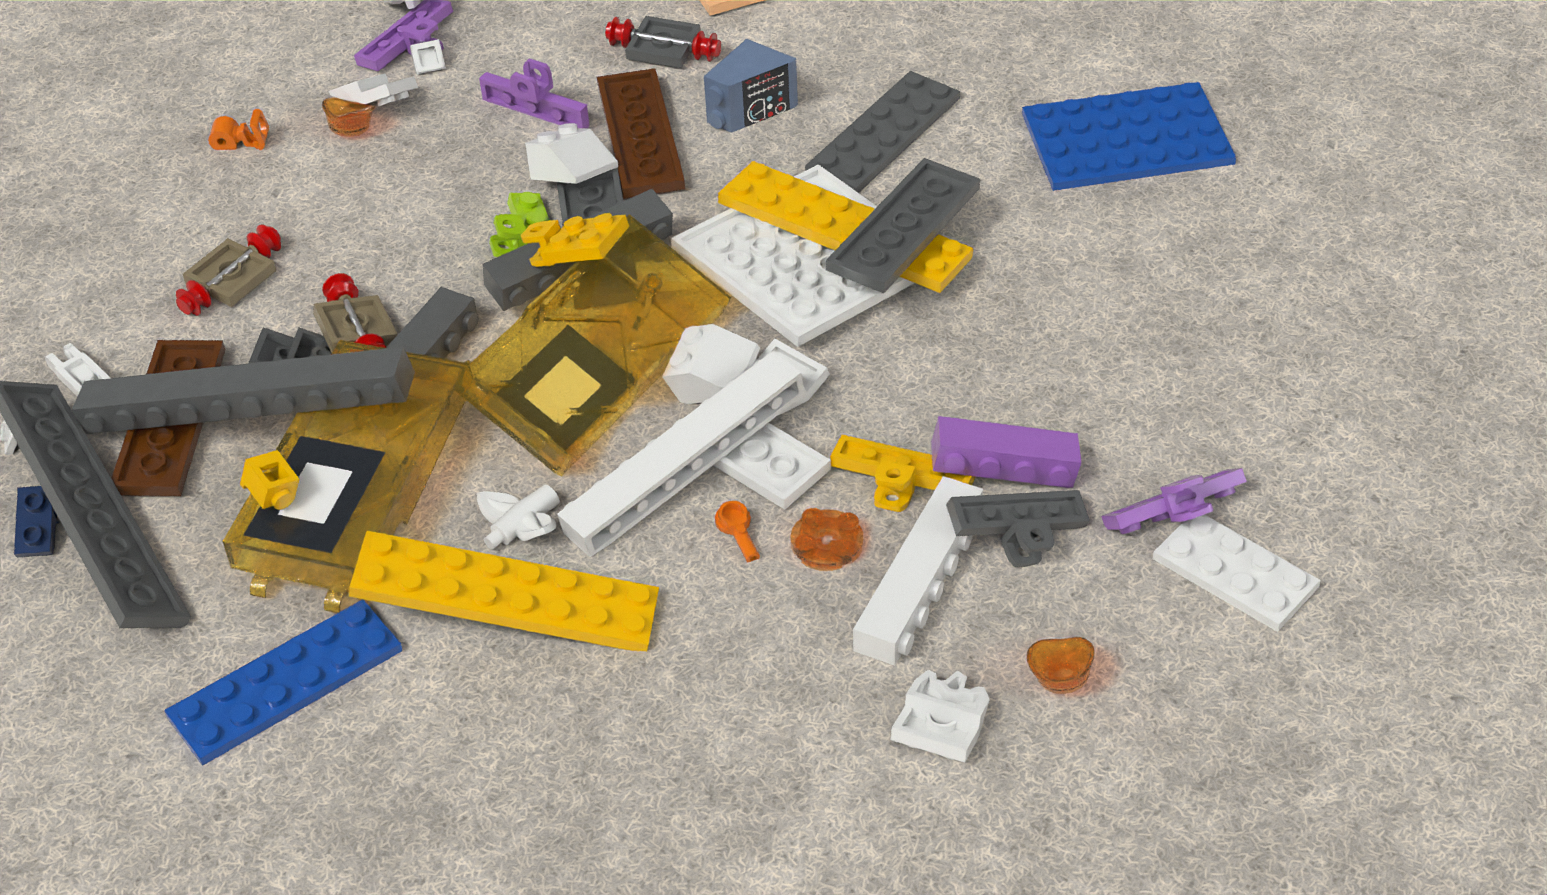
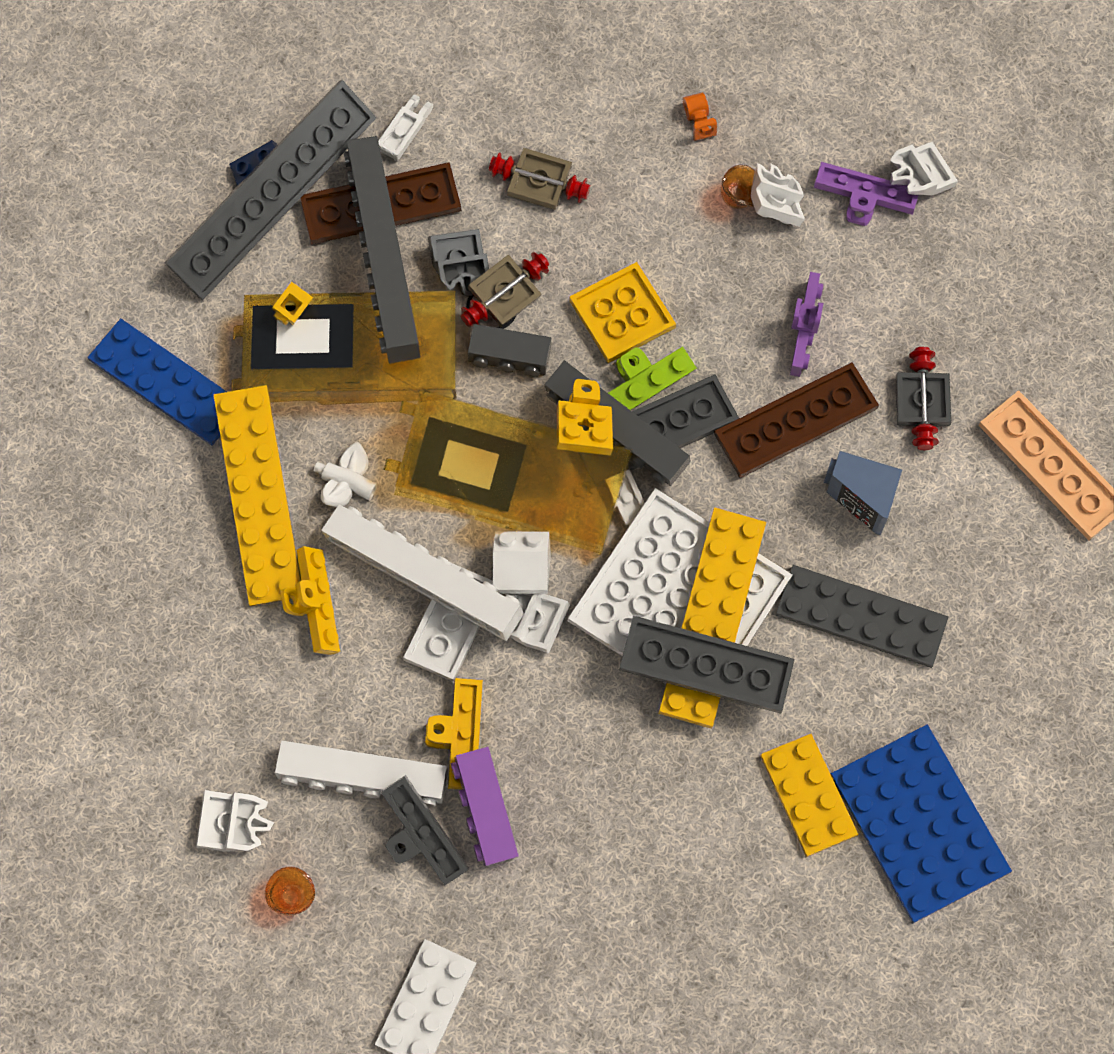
camera: 70 degrees right, 25 degrees up
(427, 56) = (839, 219): white tile -> none
(438, 237) = (622, 312): none -> yellow plate
(568, 155) = (729, 378): white slope -> none
(672, 568) = (313, 599): none -> yellow plate
(734, 520) = (381, 627): orange plate -> none
(820, 523) = (370, 710): clear orange plate -> none
(1071, 207) = (809, 795): none -> yellow plate
(1178, 501) = (477, 946): medium lavender plate -> none

